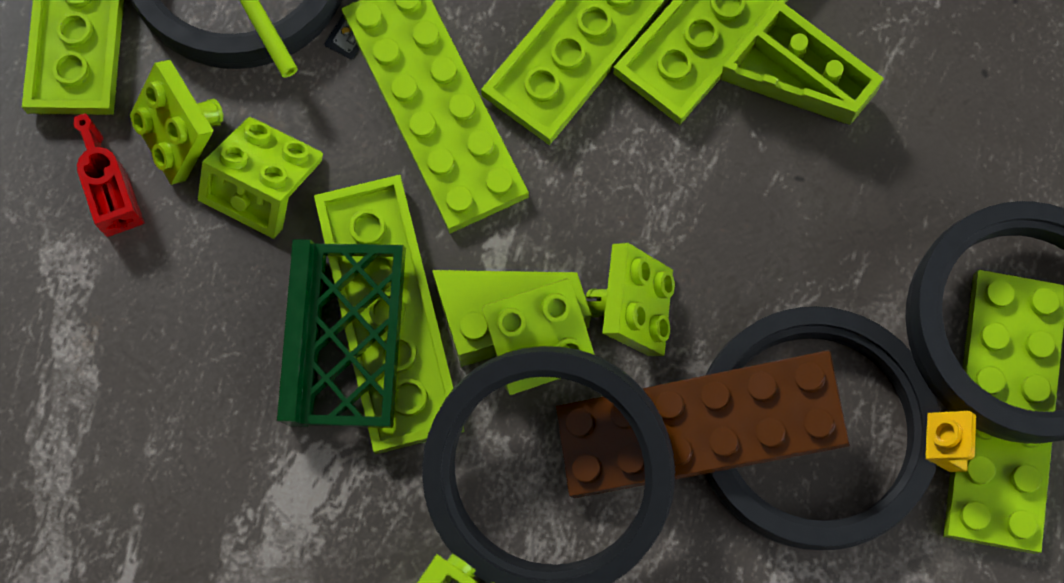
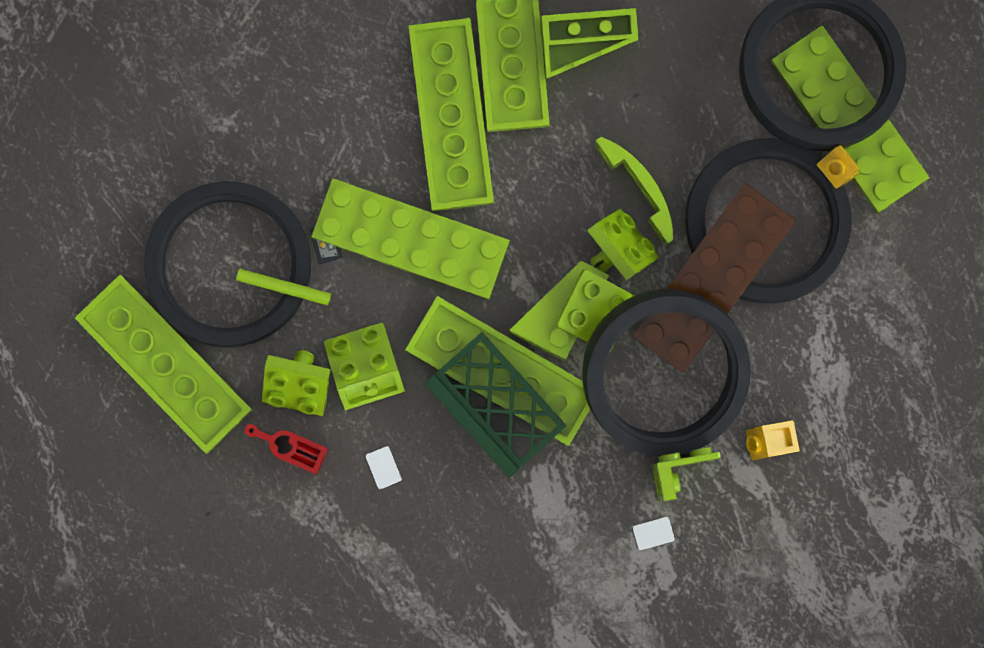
camera: 50 degrees left, 10 degrees up
(175, 293) = (383, 467): none -> white sticker
(721, 216) = (614, 156): none -> lime slope

